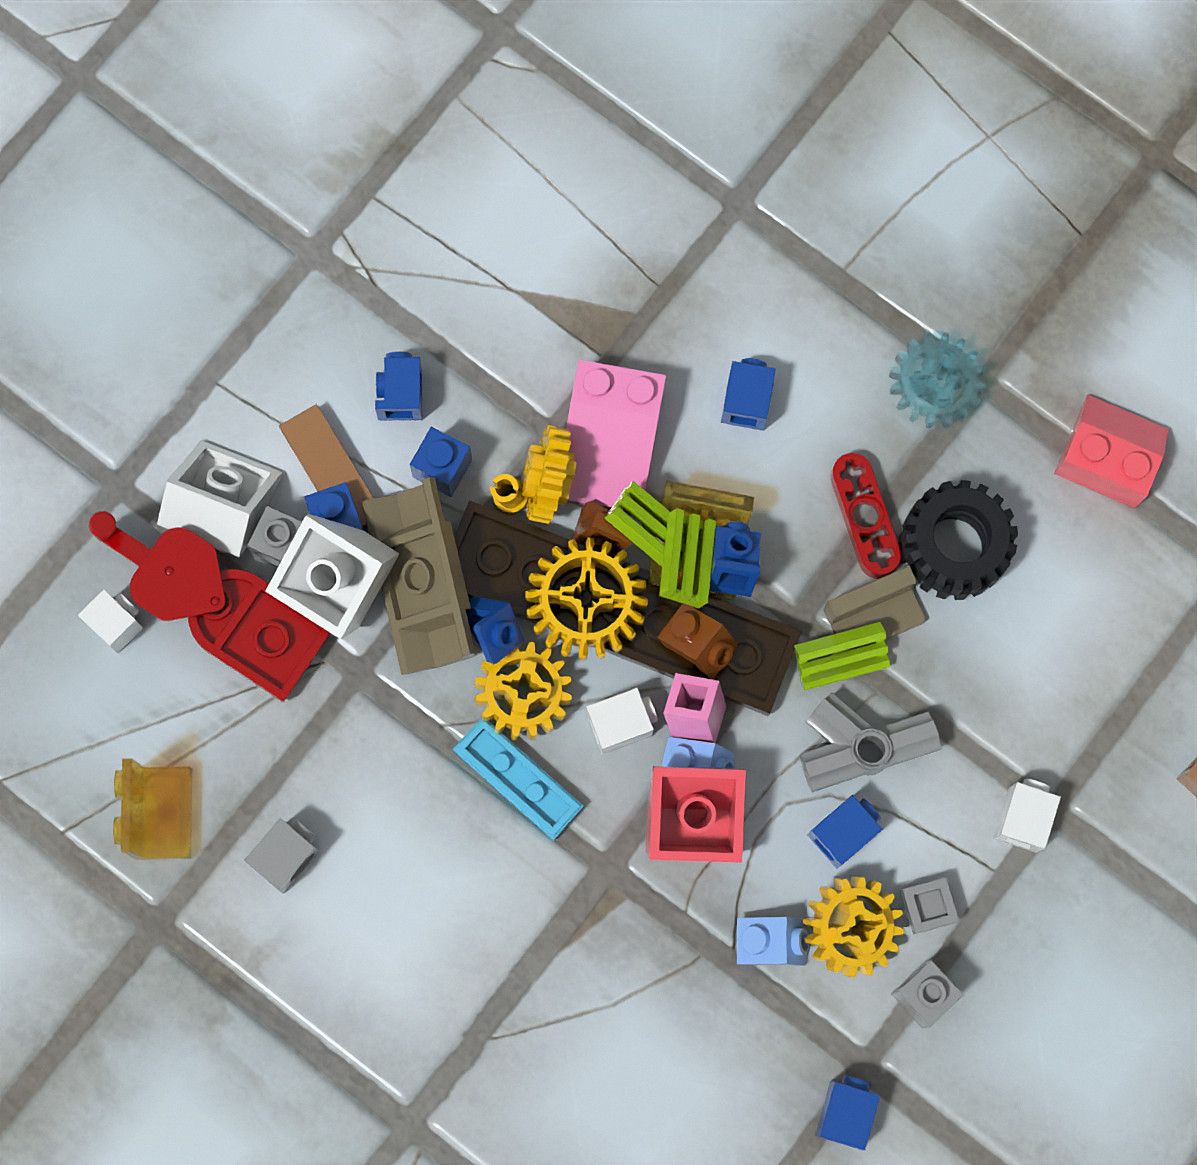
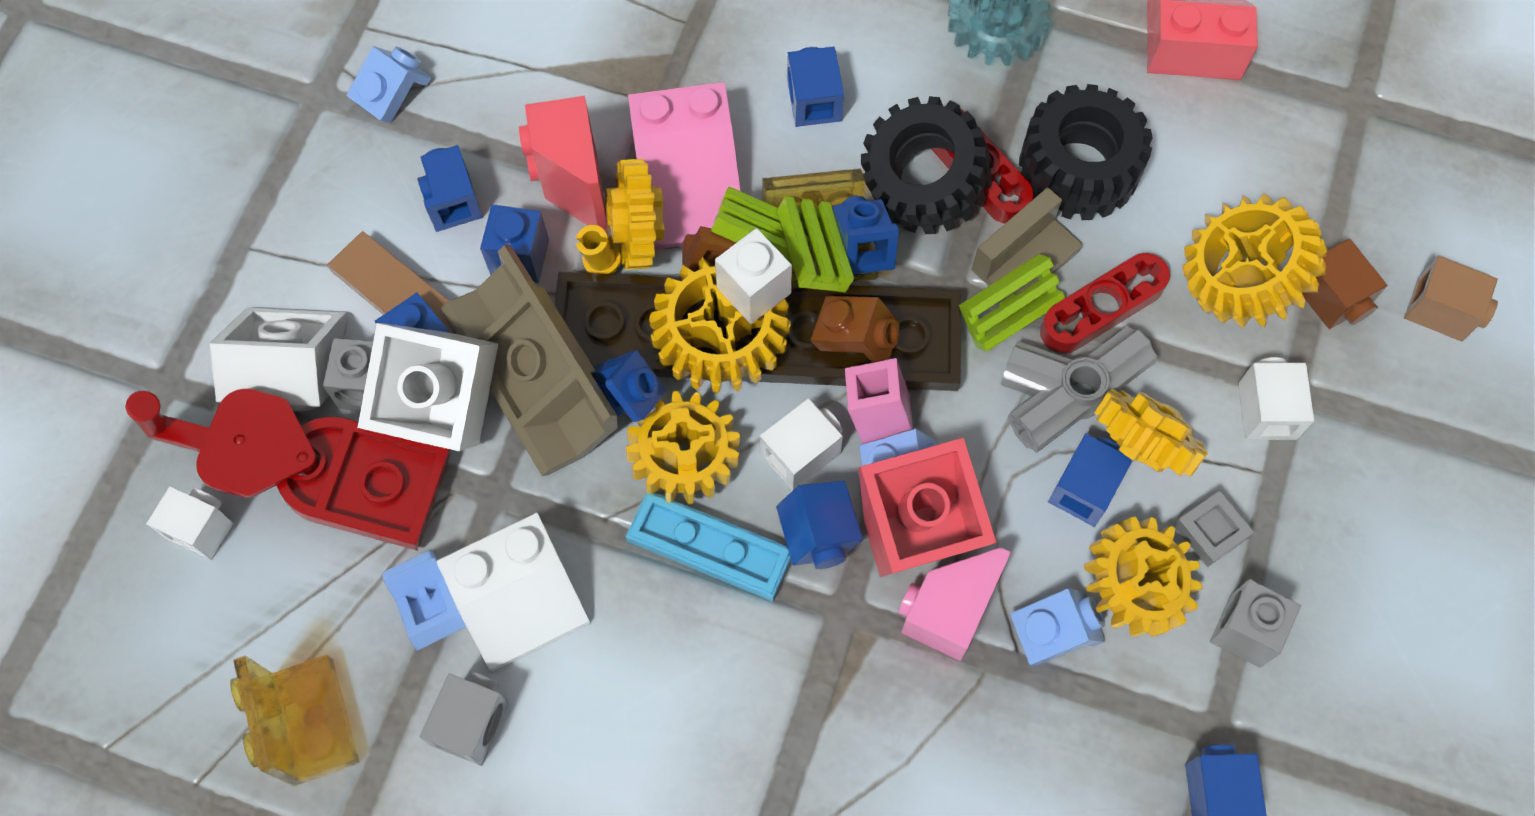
camera: 15 degrees left, 10 degrees down
(278, 749) = (423, 600): none -> light blue bracket
(349, 767) = (512, 592): none -> white slope
(377, 265) = (386, 81): none -> light blue bracket
(507, 401) = (564, 157): none -> coral slope
(609, 795) = (819, 524): none -> blue brick
(622, 578) = (753, 275): none -> white brick
(693, 893) = (952, 602): none -> bright pink slope
(788, 485) = (918, 129): none -> black tyre
(906, 812) = (1151, 432): none -> yellow gear
(951, 660) = (1112, 283): none -> red beam
(1023, 698) = (1248, 286): none -> yellow gear
(1128, 735) = (1347, 287): none -> dark orange brick

